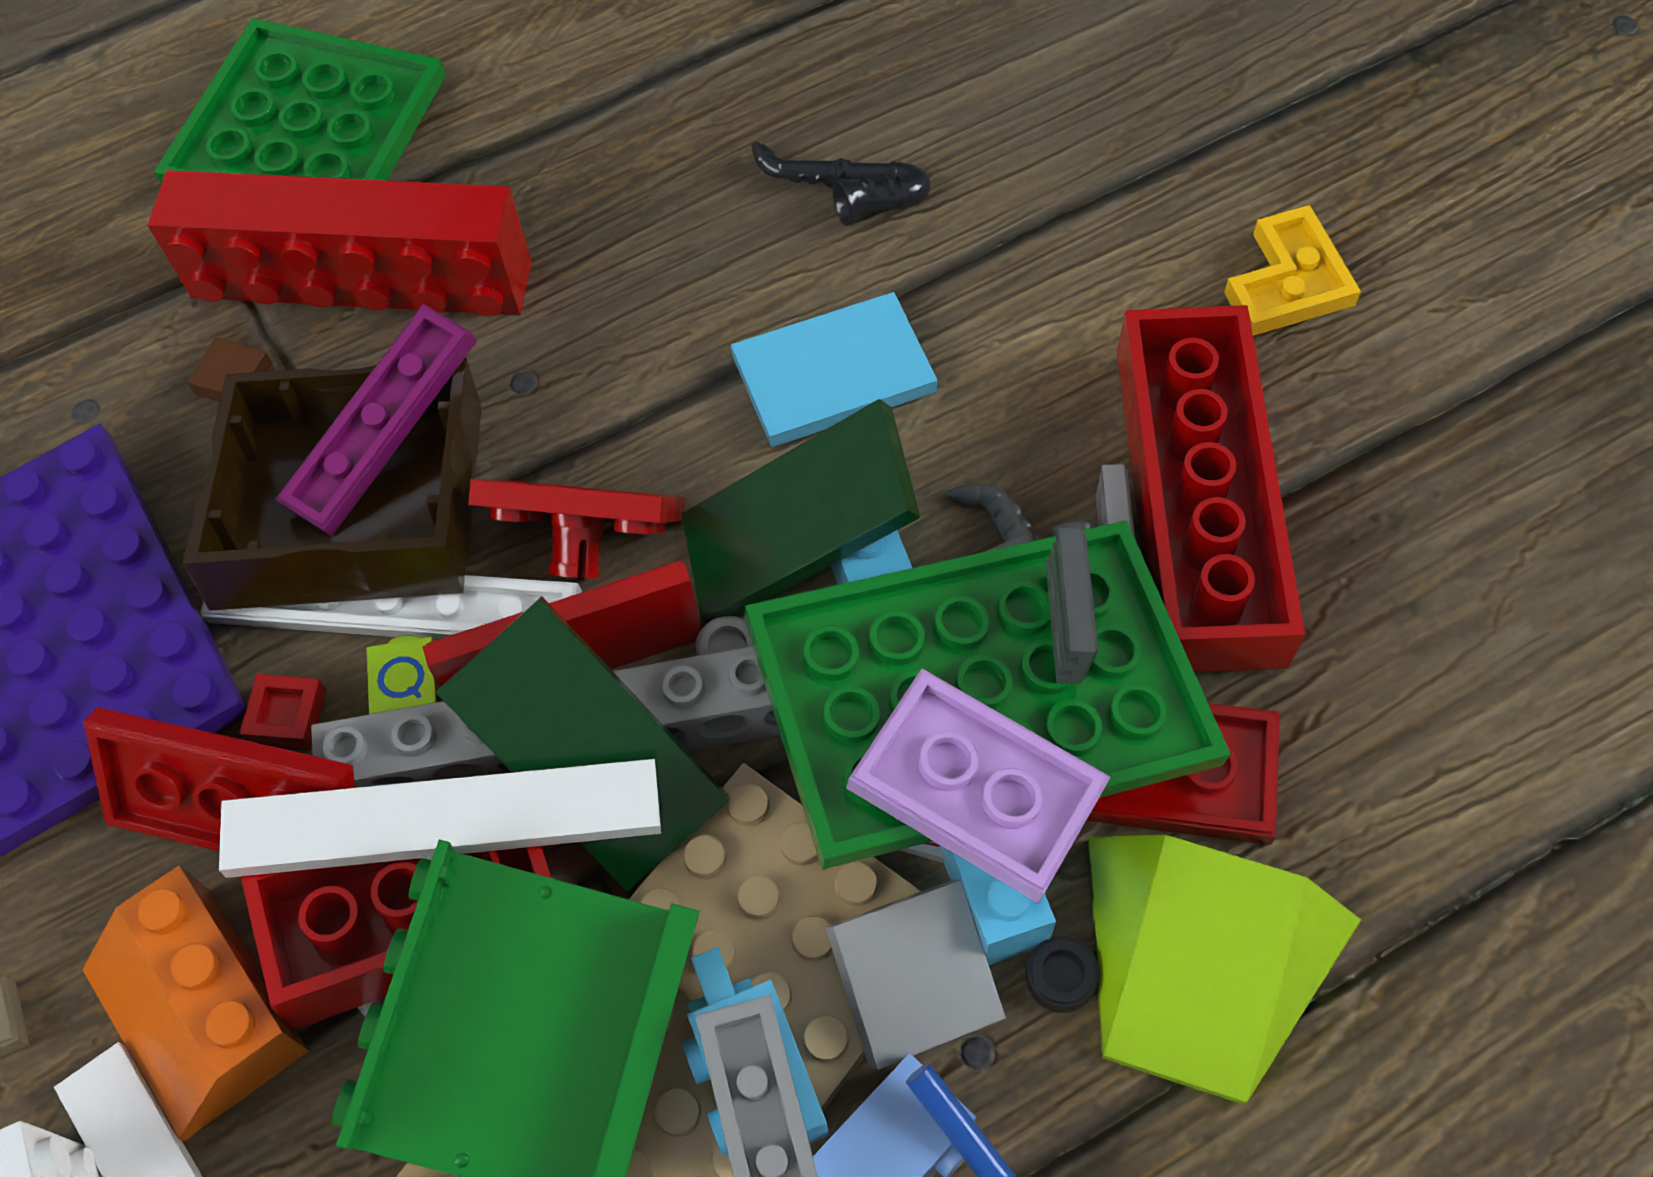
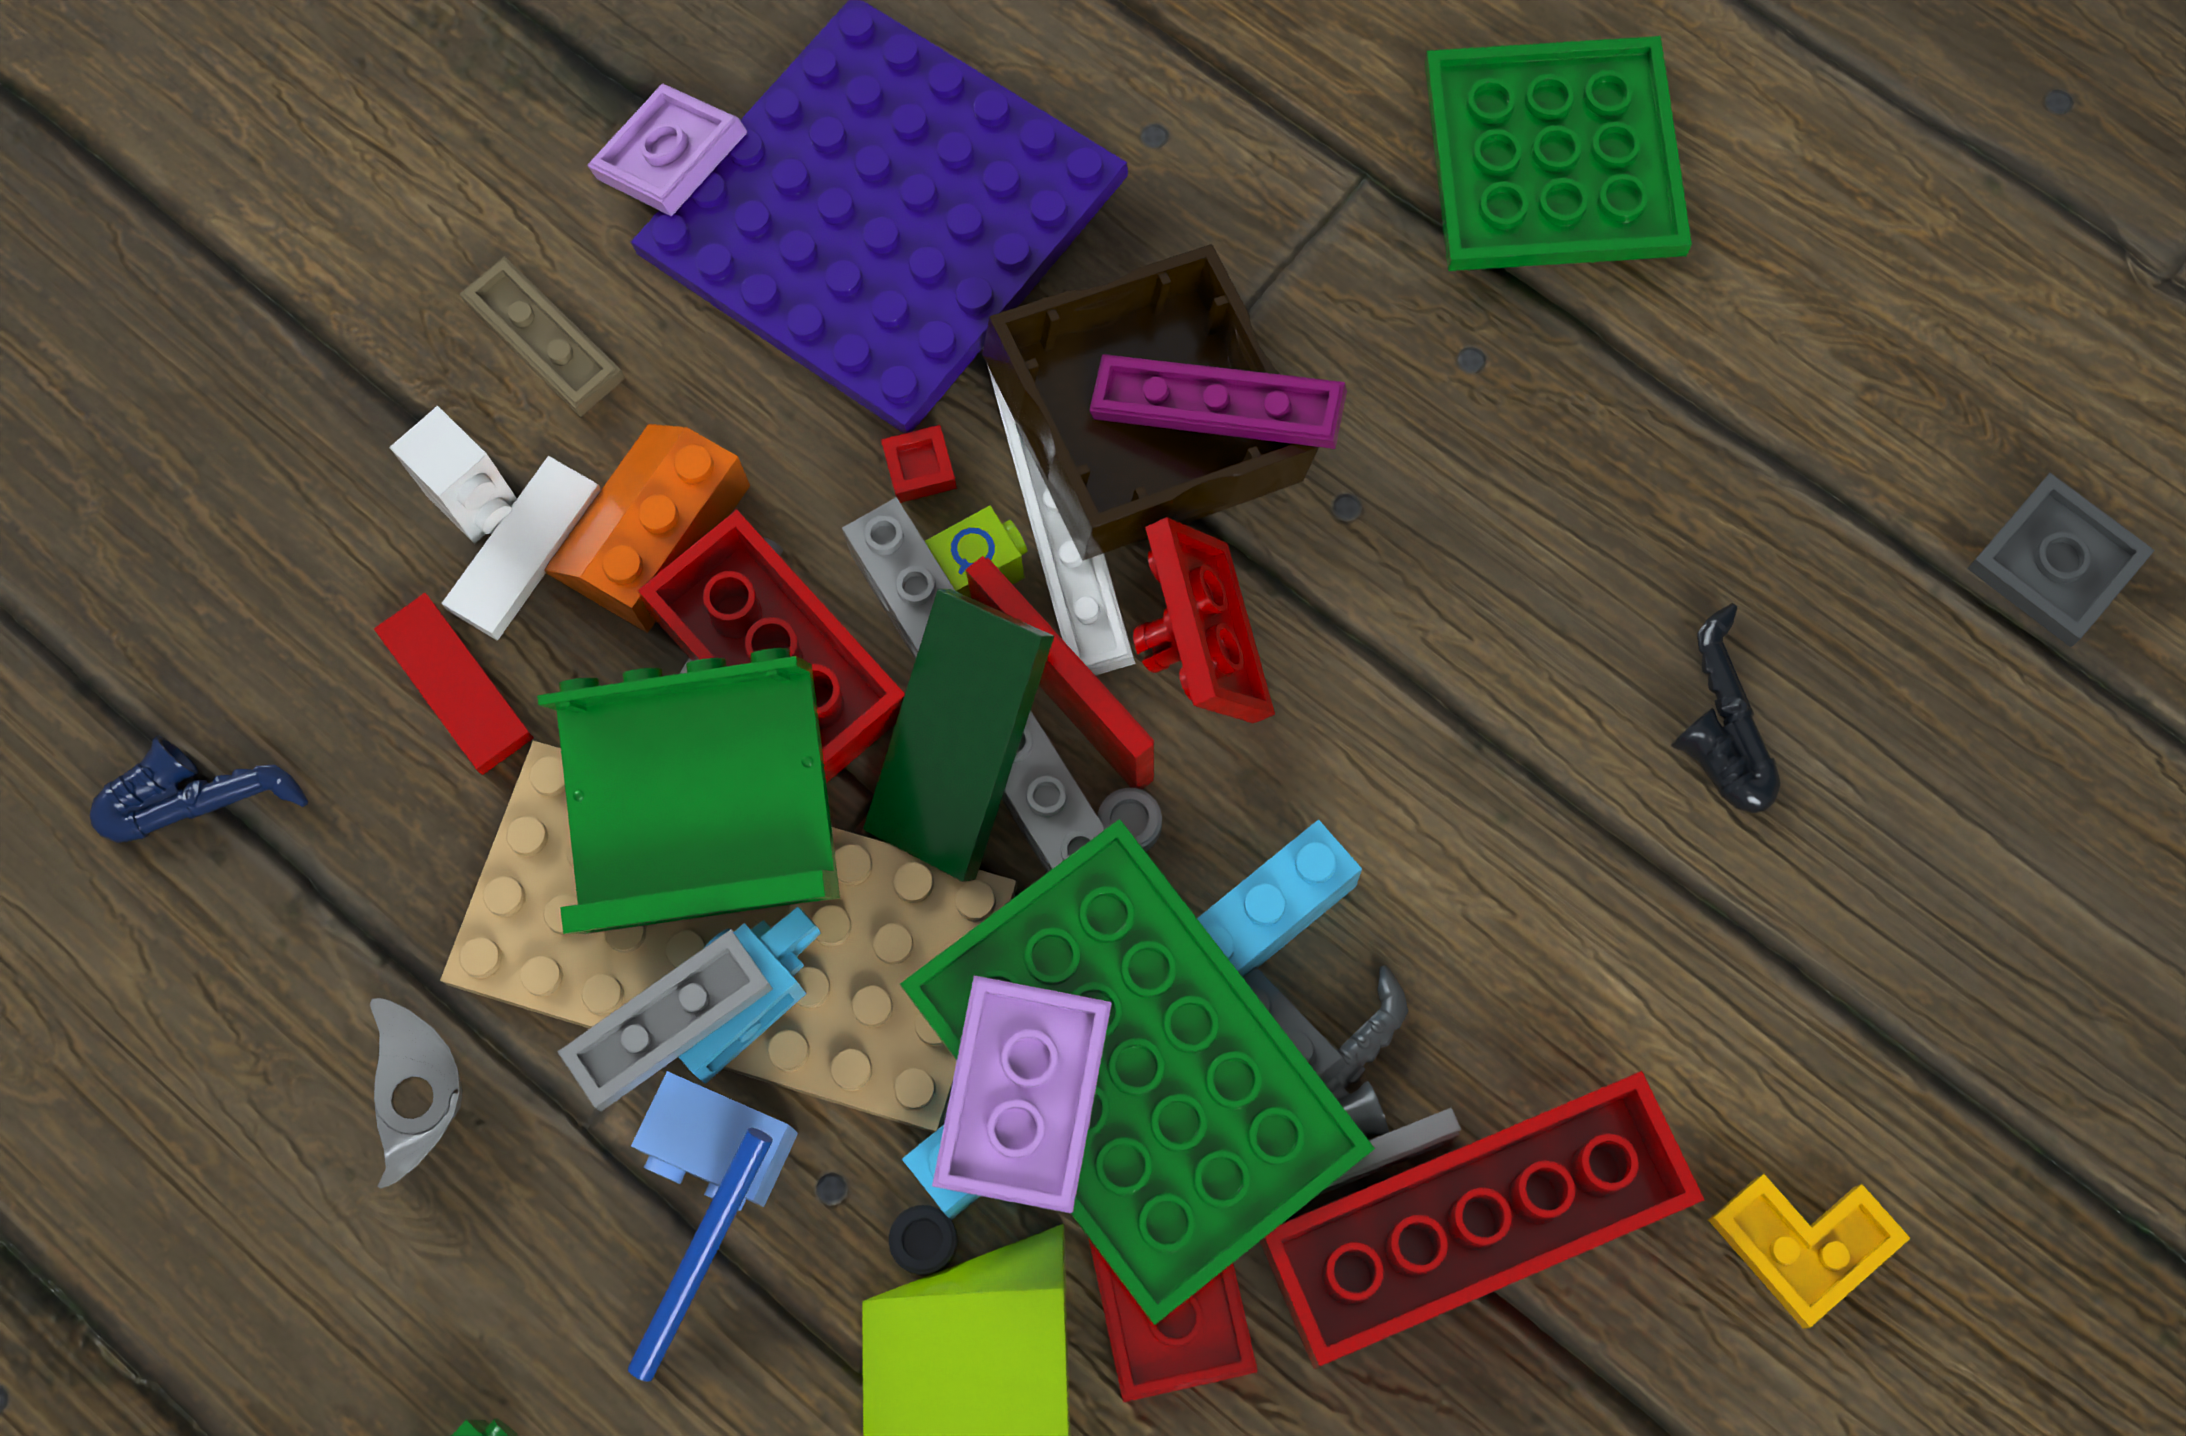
camera: 70 degrees right, 10 degrees up
(175, 777) = (815, 457): red tile -> none
(222, 359) = (1242, 237): reddish brown tile -> none
(343, 242) = (1407, 274): red brick -> none
(411, 817) = (842, 650): white tile -> none
(800, 513) = (1268, 831): dark green tile -> none
(833, 367) = (1483, 799): medium azure tile -> none
(915, 973) = (864, 1105): light grey tile -> none
(1071, 606) = (1234, 1120): dark grey tile -> none

